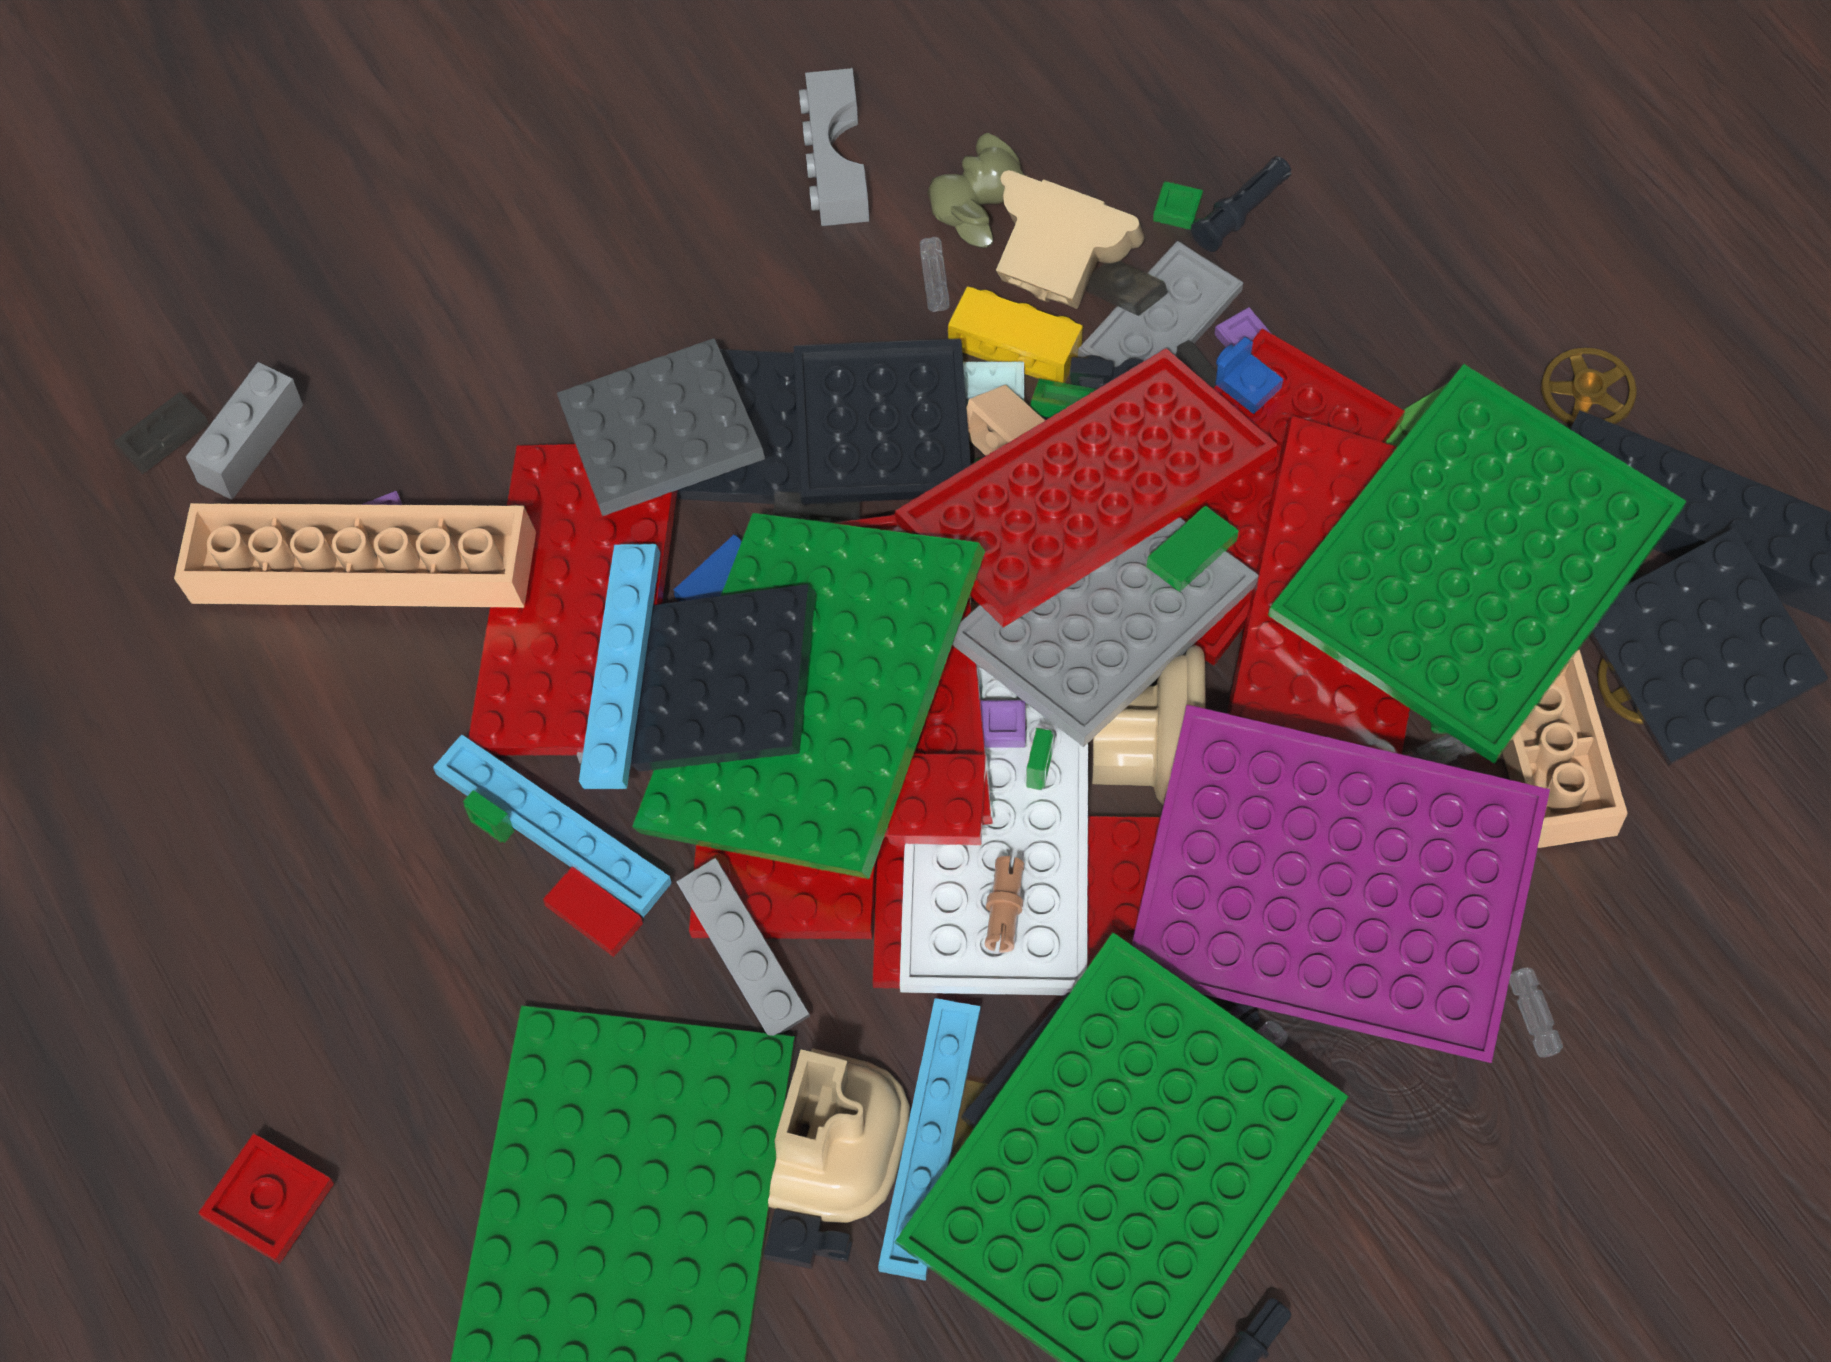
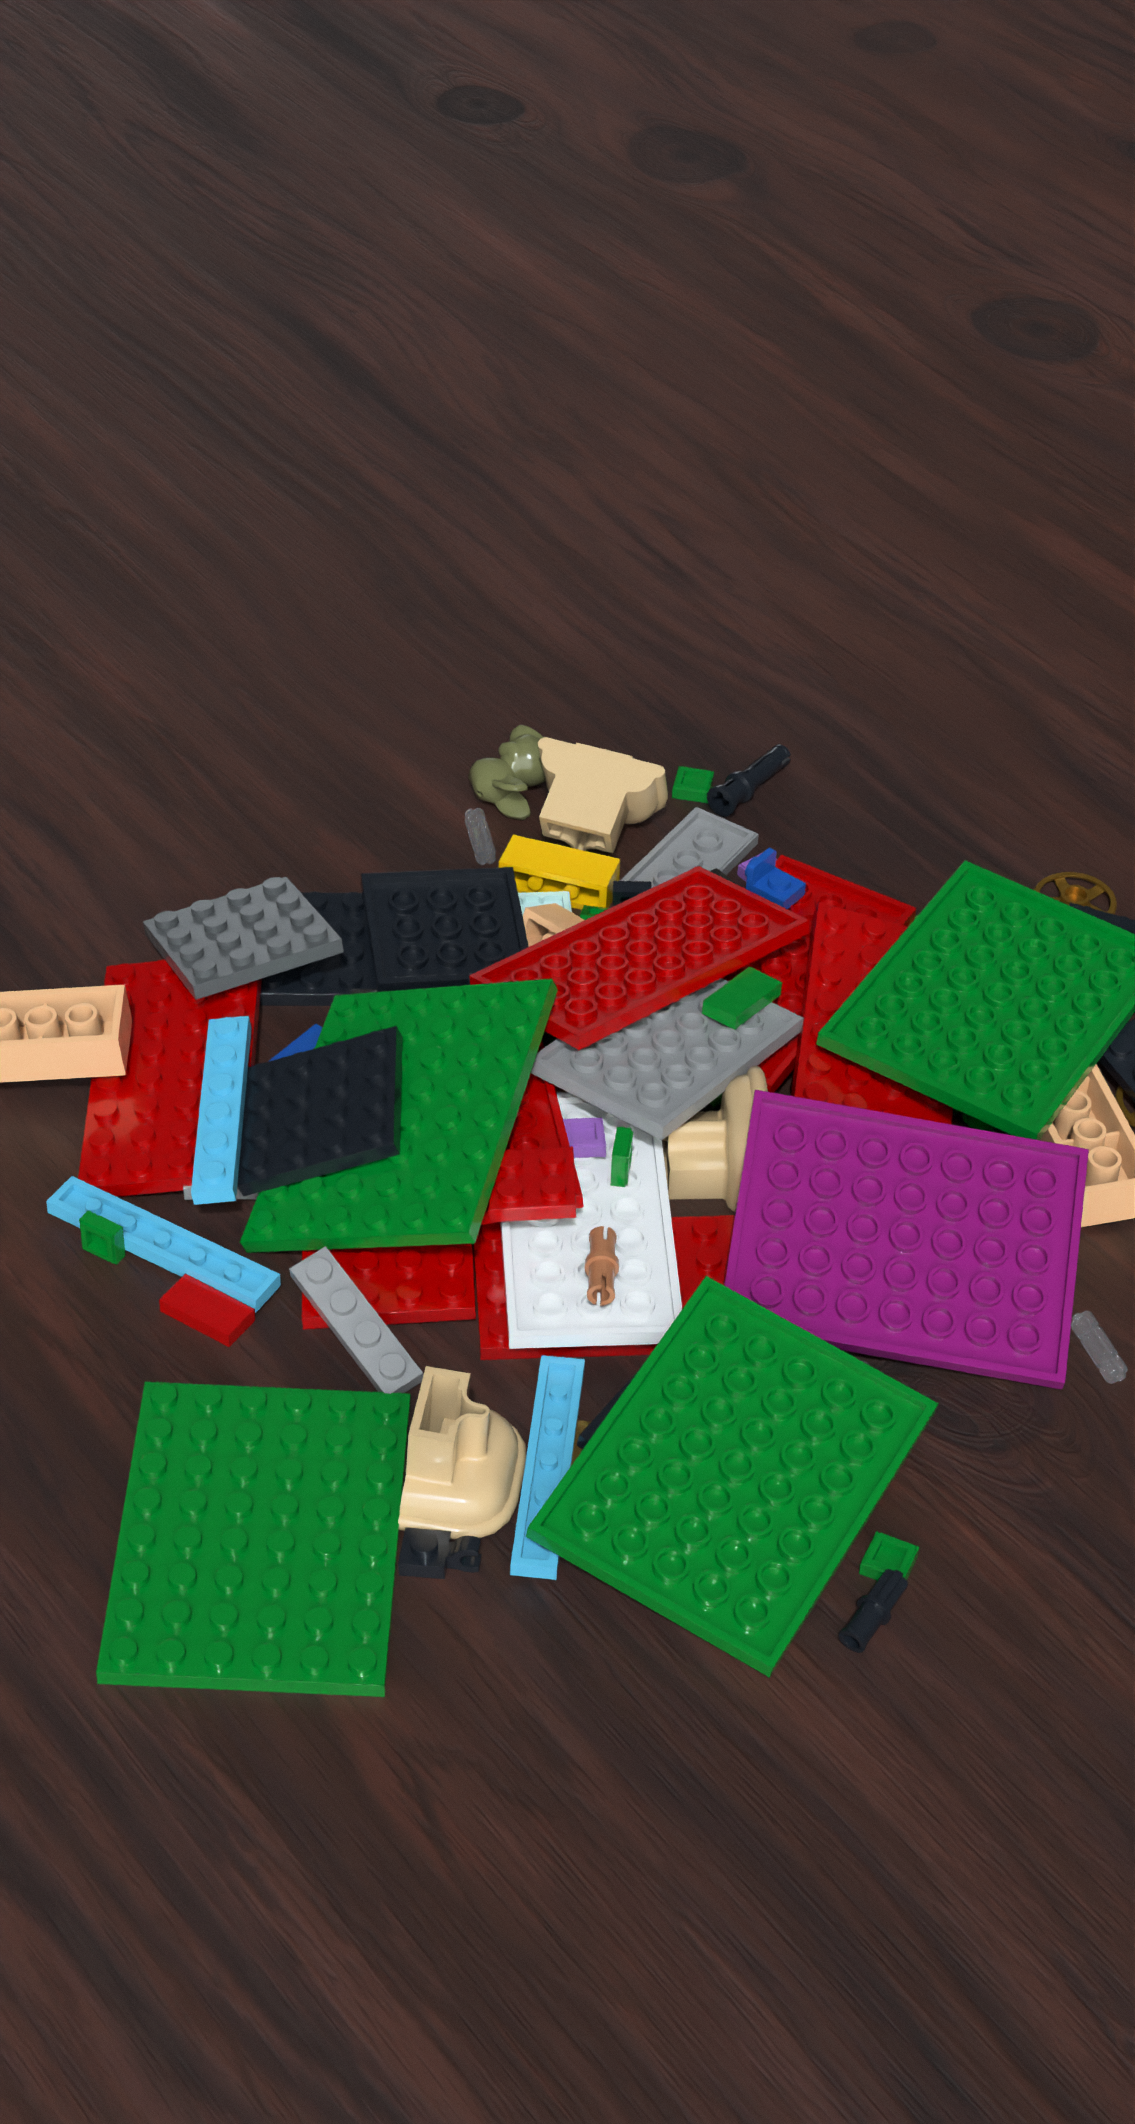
camera: 10 degrees left, 20 degrees down
(840, 182) = (387, 773): light grey arch -> none
(1126, 287) = (655, 836): clear smoke plate -> none
(1276, 1275) = (888, 1553): none -> green tile

